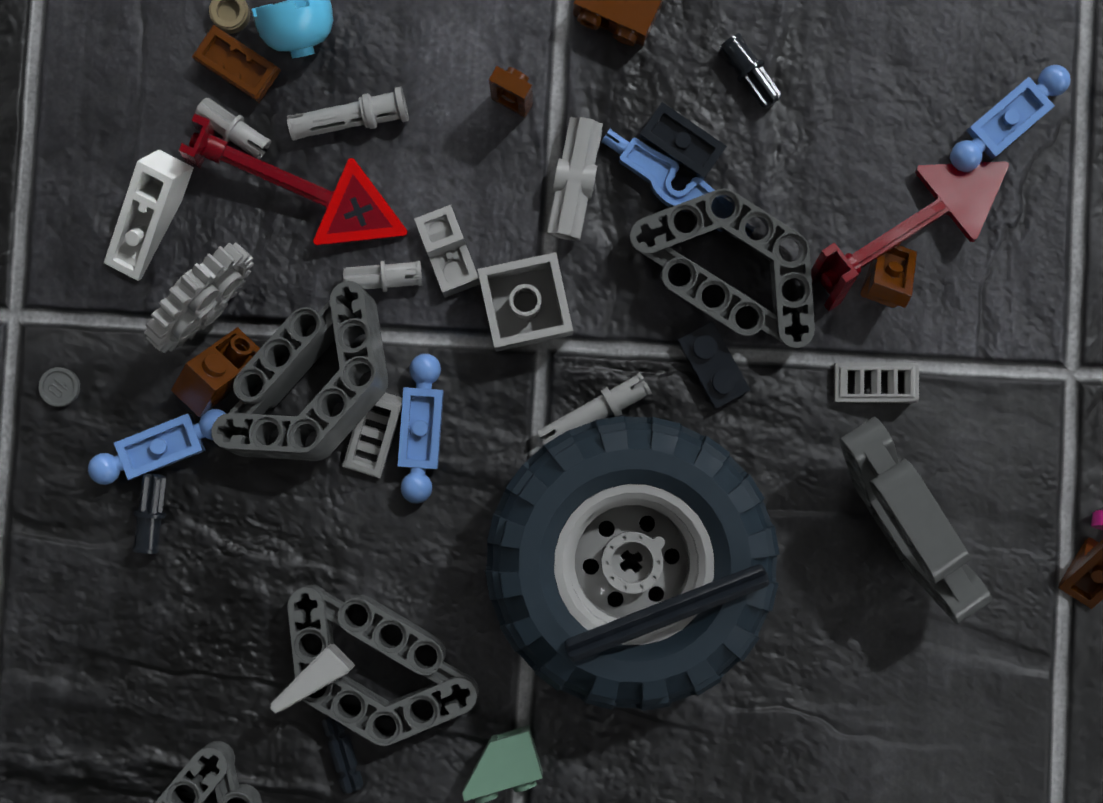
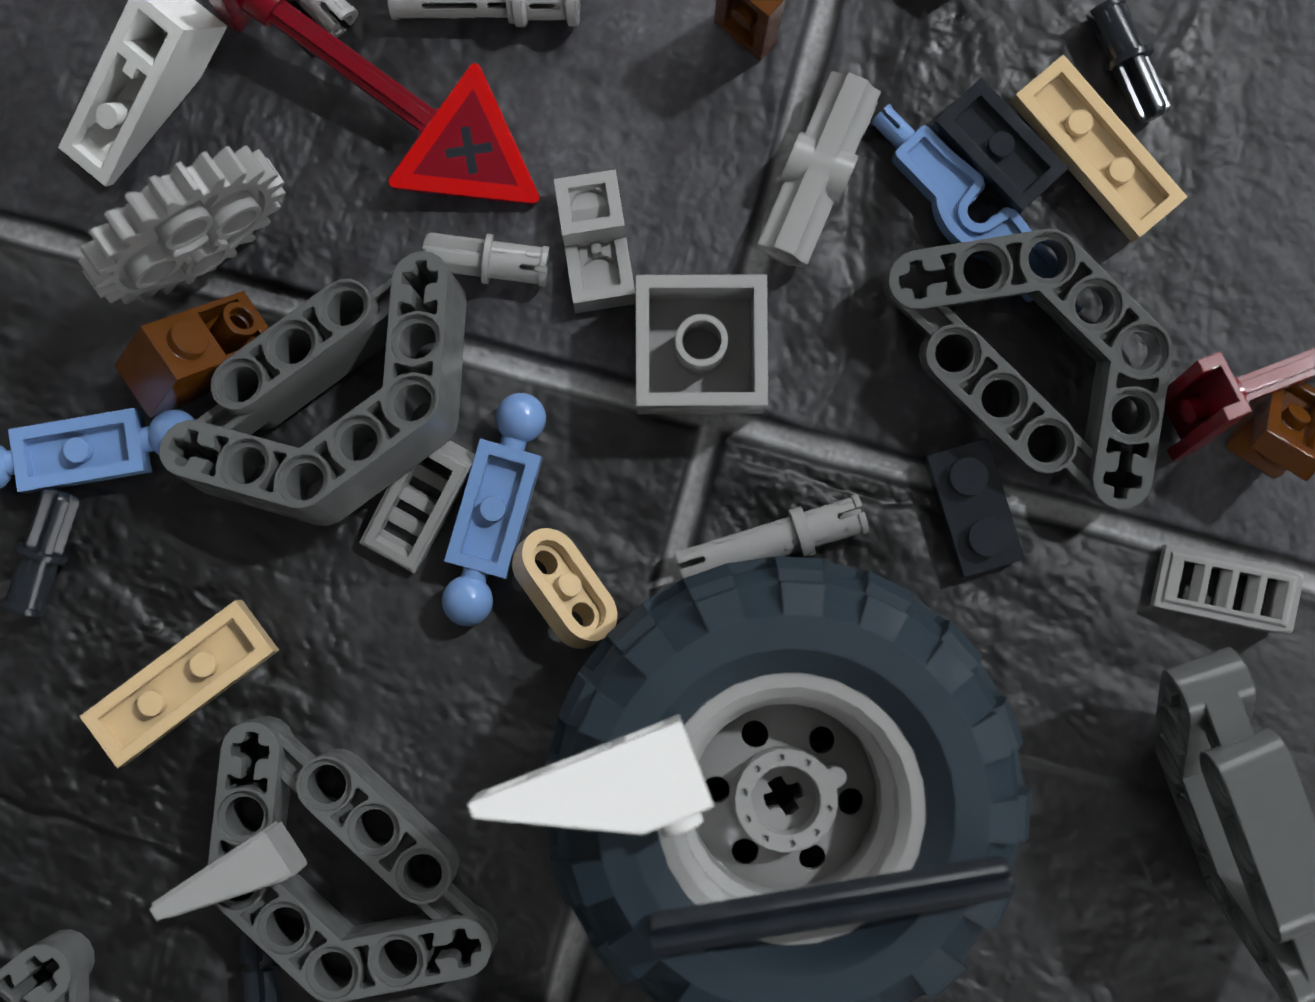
camera: 15 degrees right, 0 degrees up
(251, 575) = (179, 683): none -> tan plate
(474, 467) = (565, 588): none -> tan plate
(532, 569) = (617, 787): none -> white slope
(742, 129) = (1098, 148): none -> tan plate

